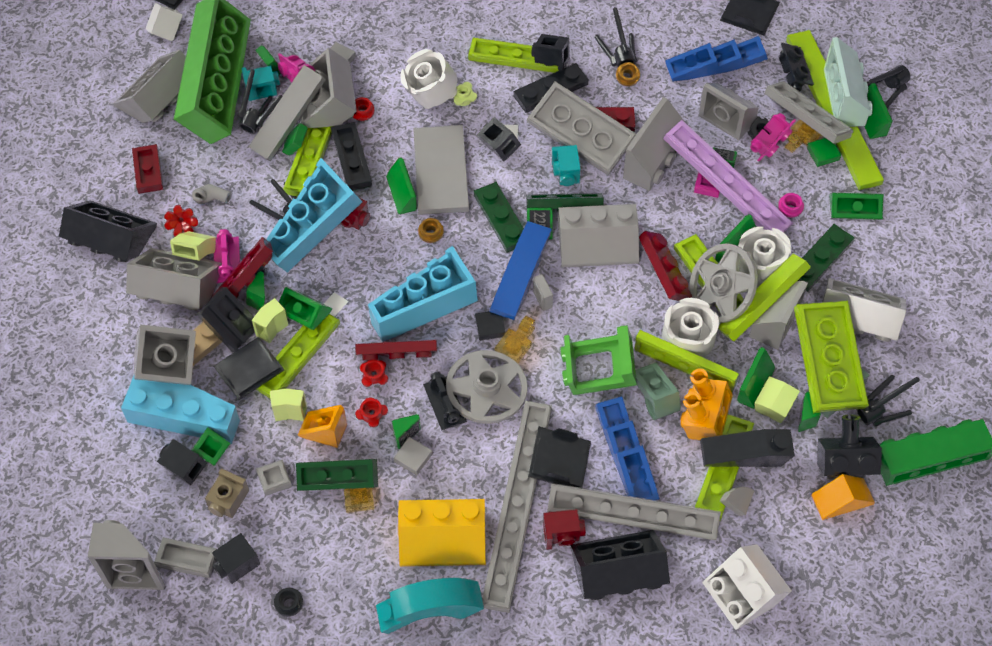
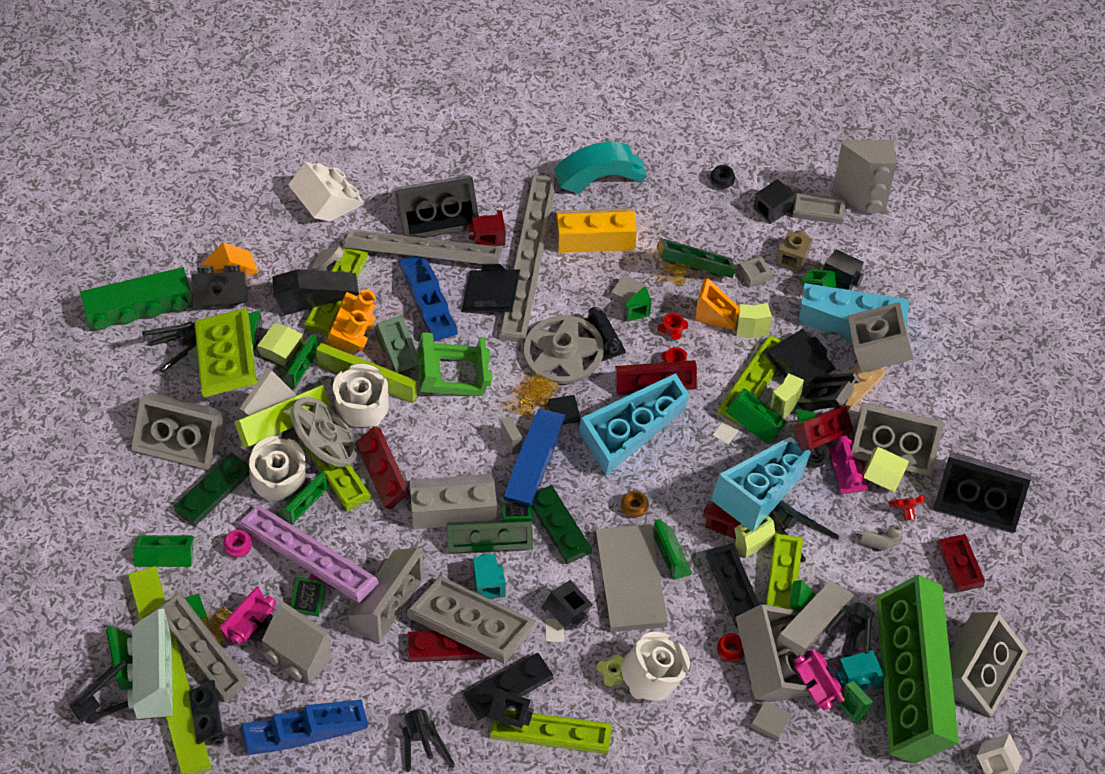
camera: 175 degrees right, 5 degrees down
(629, 68) = (414, 699): pearl gold plate -> none

